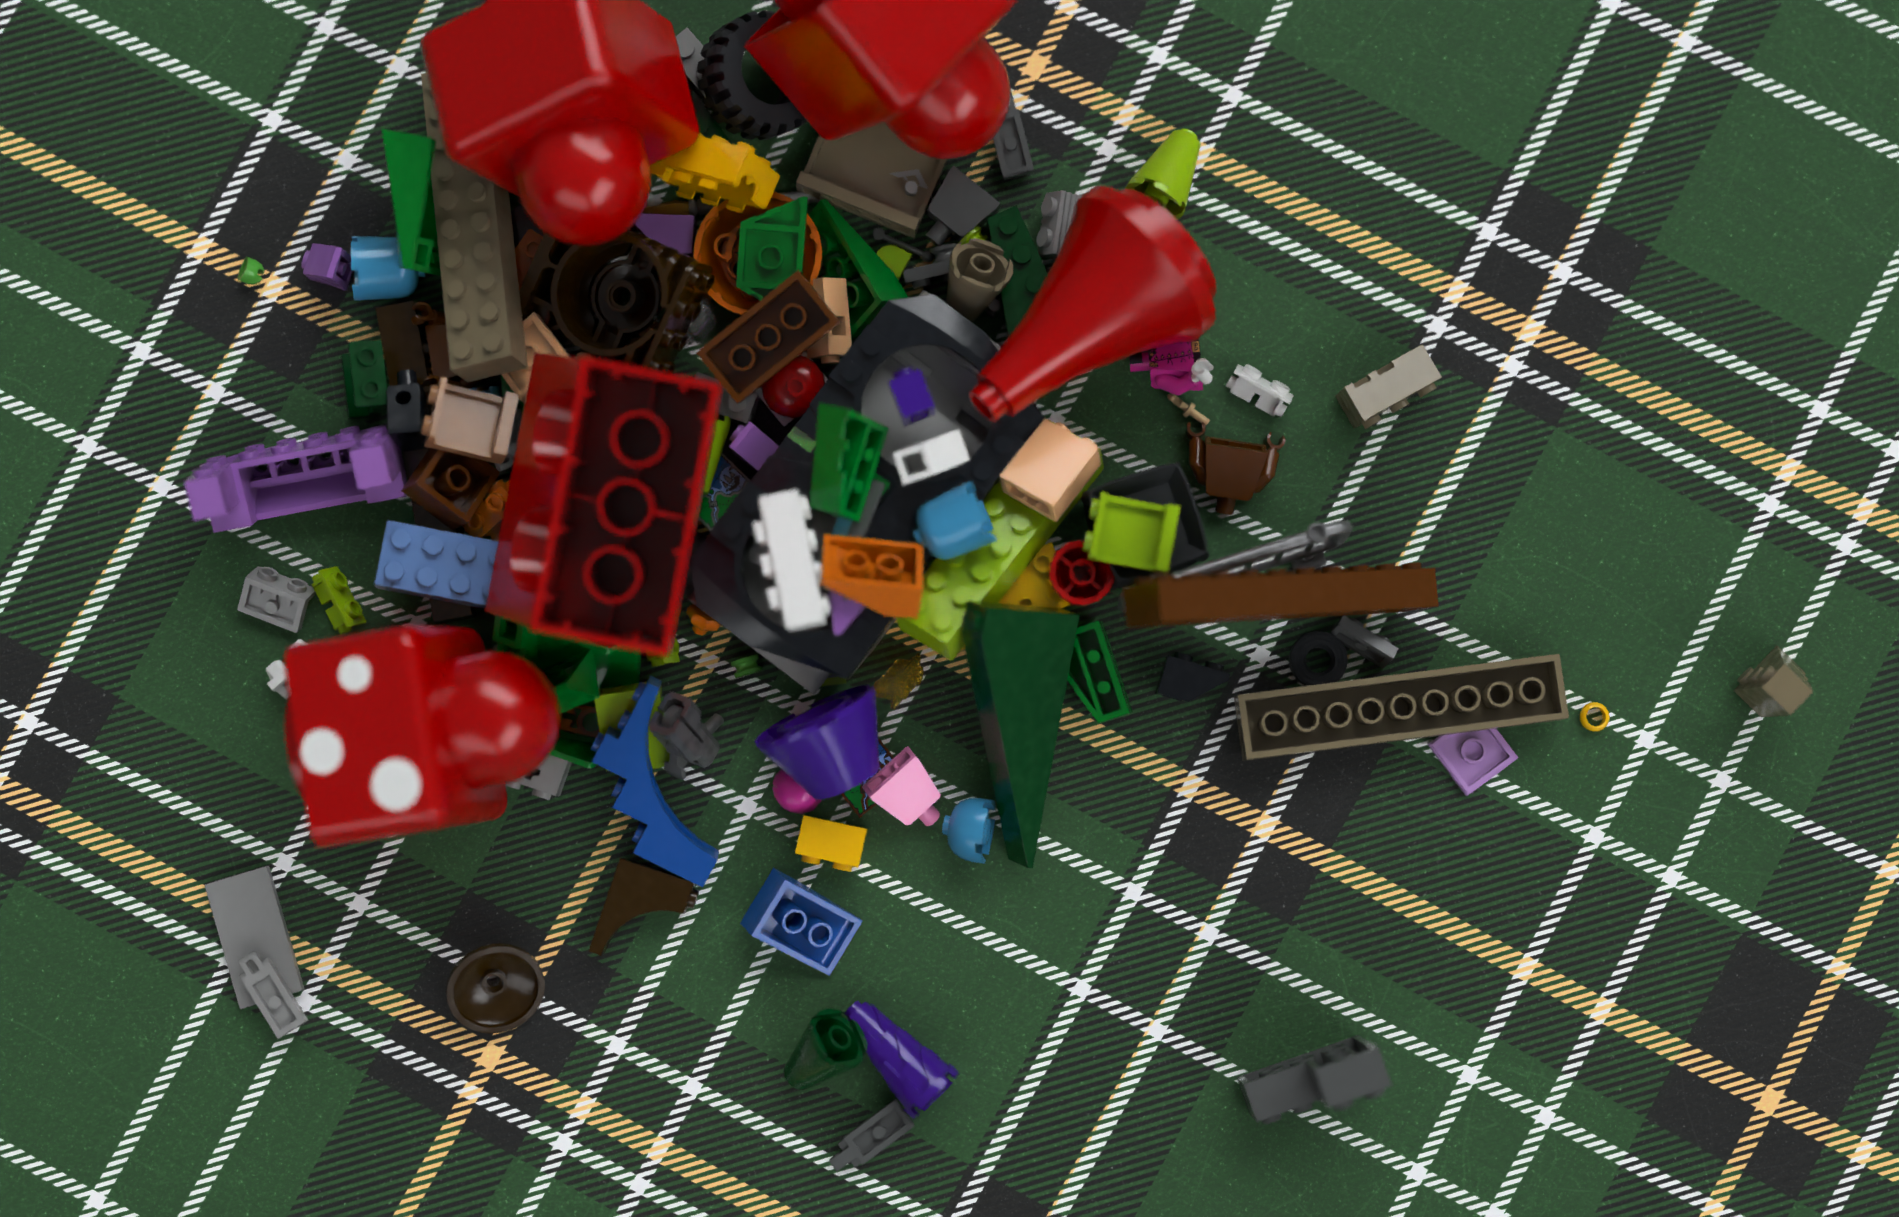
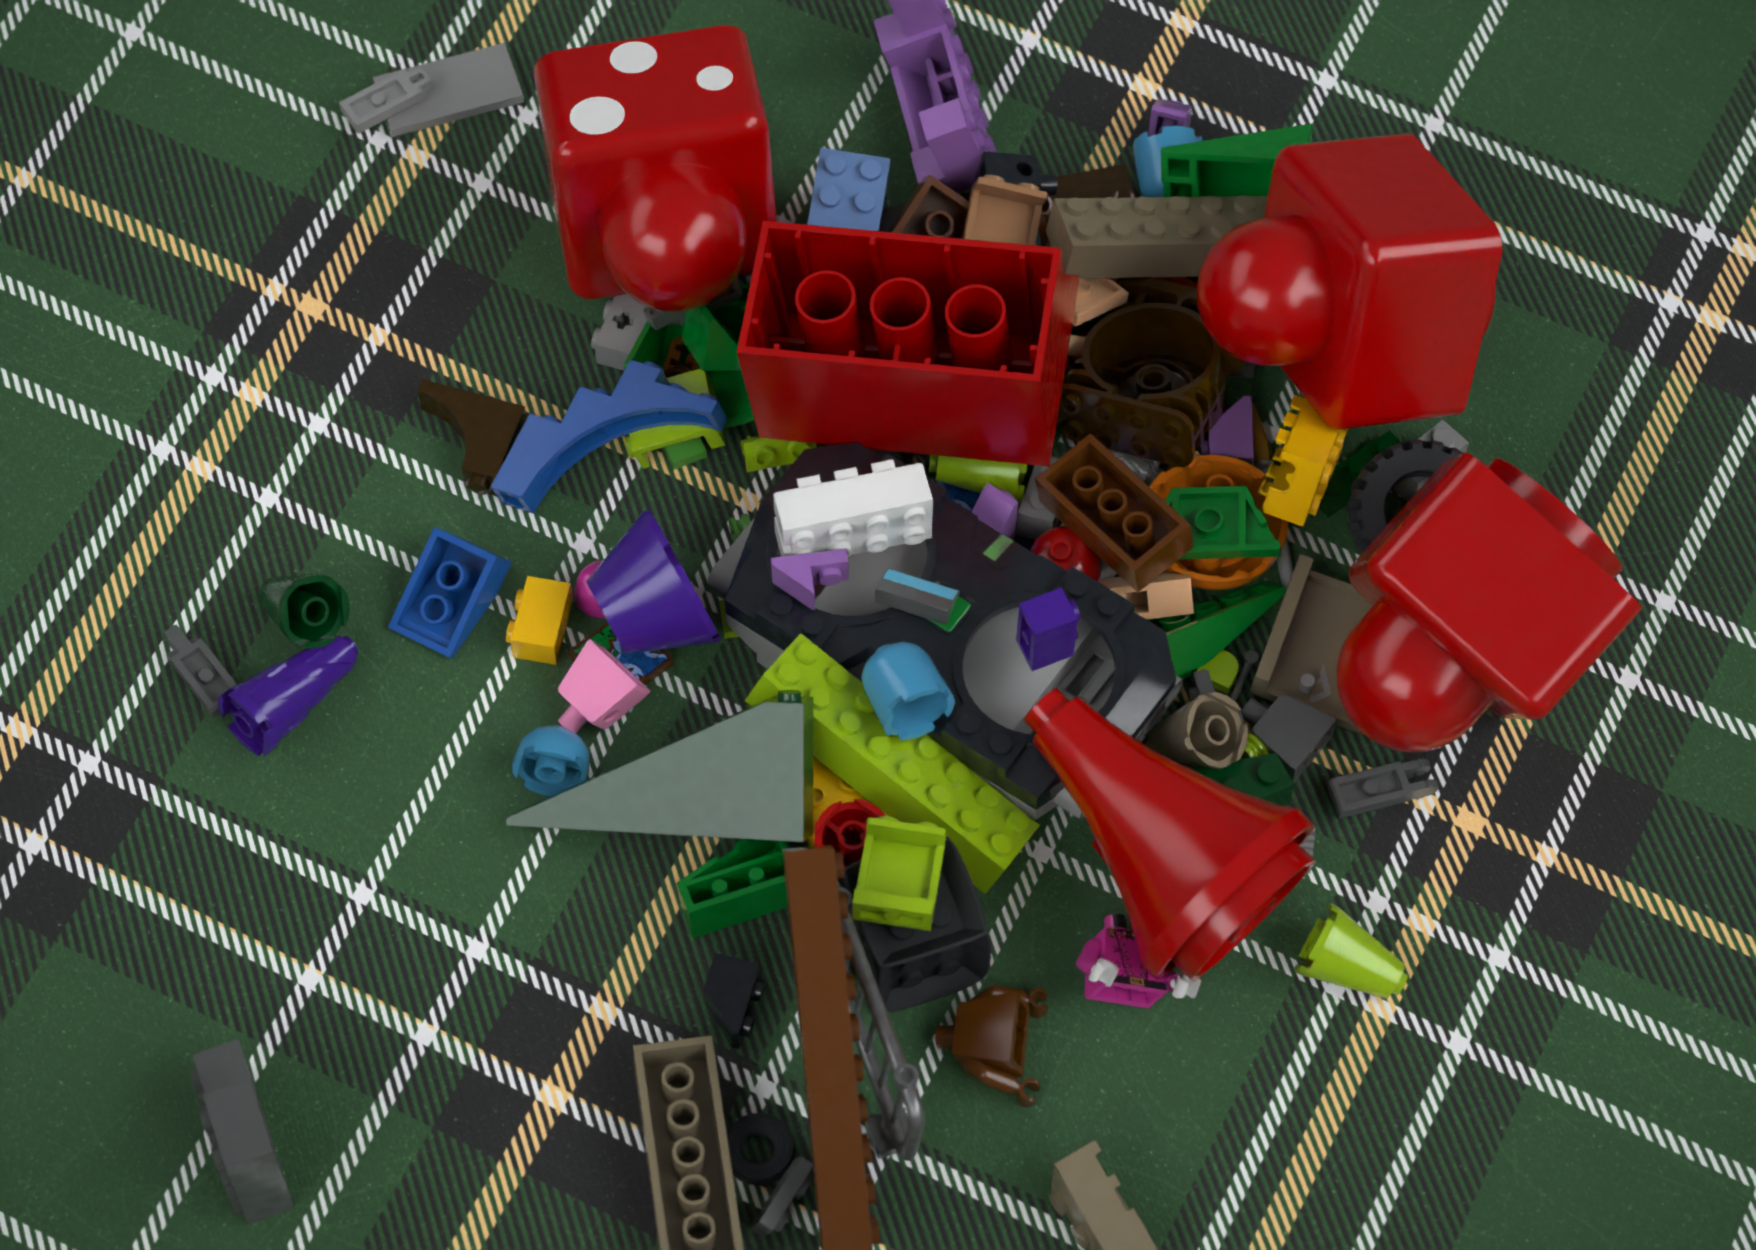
camera: 90 degrees right, 25 degrees down
(249, 271) = (1159, 60): bright green hinge -> none
(275, 598) = (809, 93): light grey bracket -> none
(332, 586) = (804, 153): lime hinge -> none
(364, 379) = (1056, 145): dark green panel -> none
(496, 1003) = (370, 291): dark brown dish -> none
(685, 734) = (658, 457): flat silver piece -> none
(844, 461) = (971, 567): green wedge -> none
(875, 573) = (841, 596): orange slope -> none
(899, 680) = (723, 677): clear yellow hinge -> none
(931, 456) = (980, 655): white slope -> none
(1050, 469) = (975, 802): light nougat brick -> none
(1188, 409) = (1063, 995): tan hand -> none
(1271, 394) = (1101, 1060): white hinge -> none

